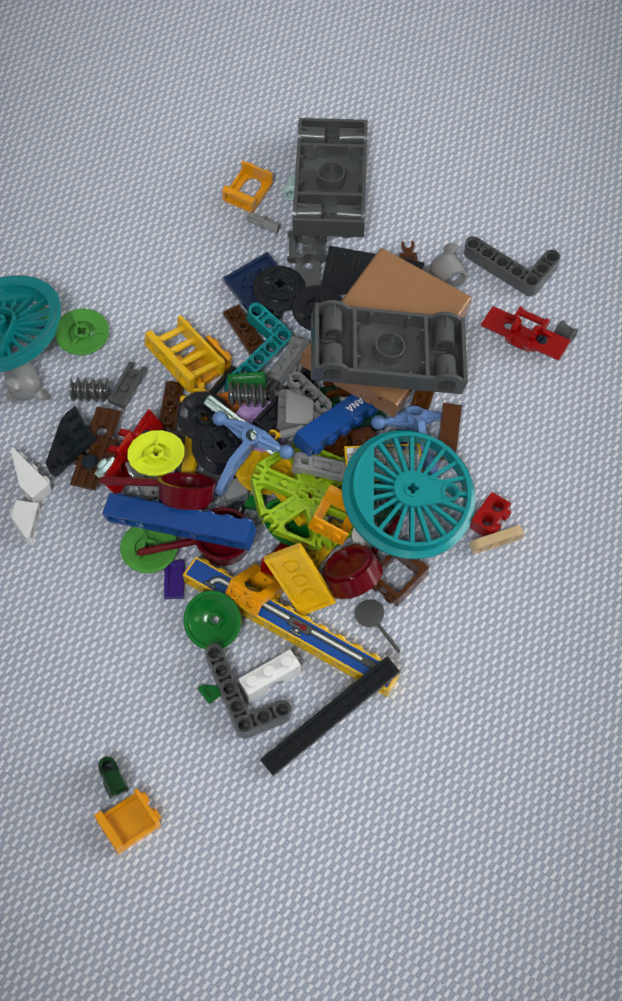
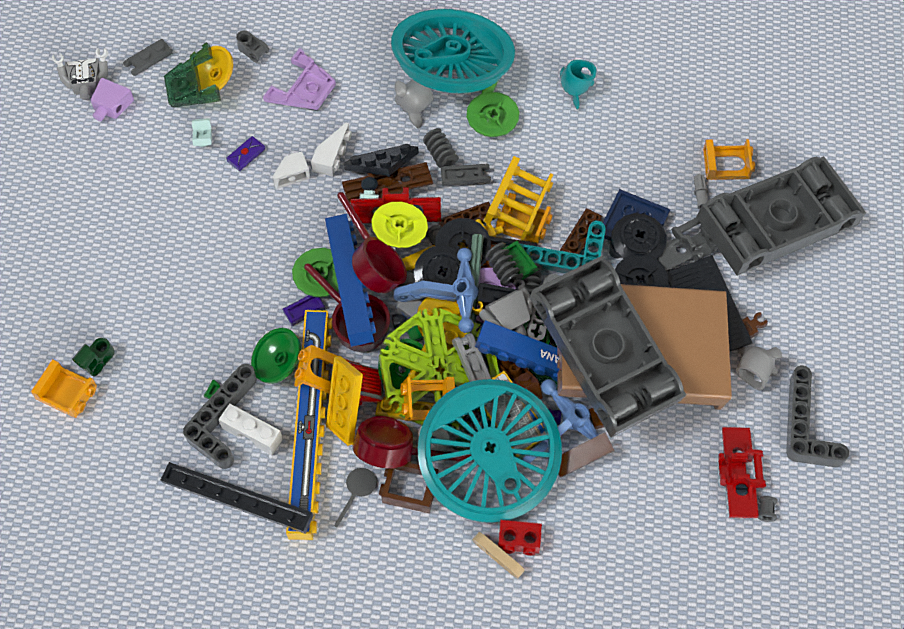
camera: 60 degrees right, 0 degrees up
(95, 252) = (575, 81): none -> teal piece

